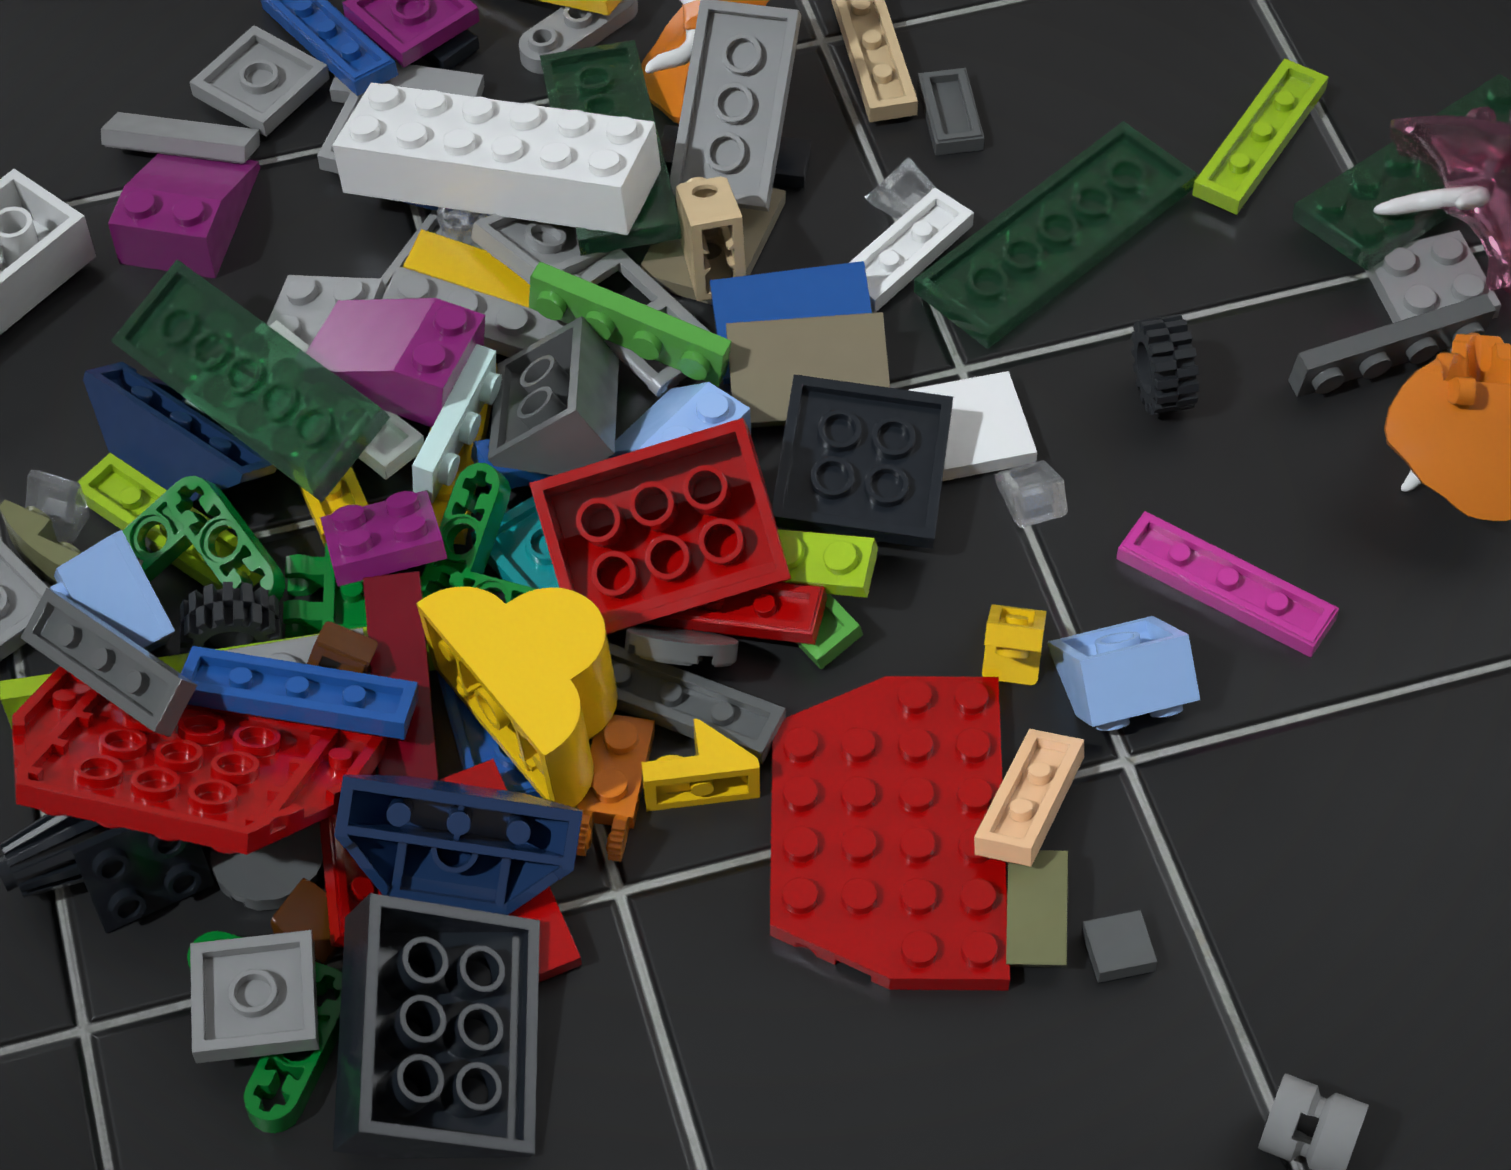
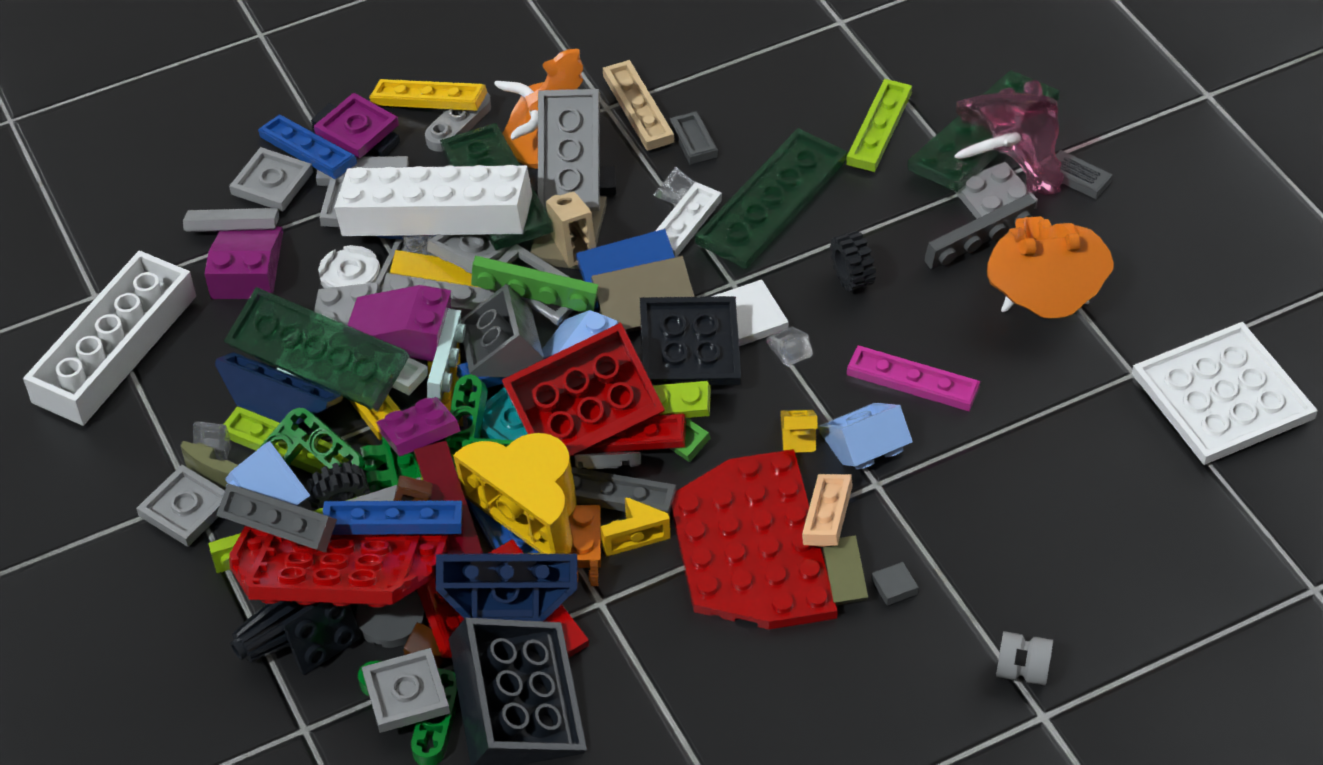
camera: 10 degrees left, 5 degrees down
(346, 246) = (349, 267): none -> white tile

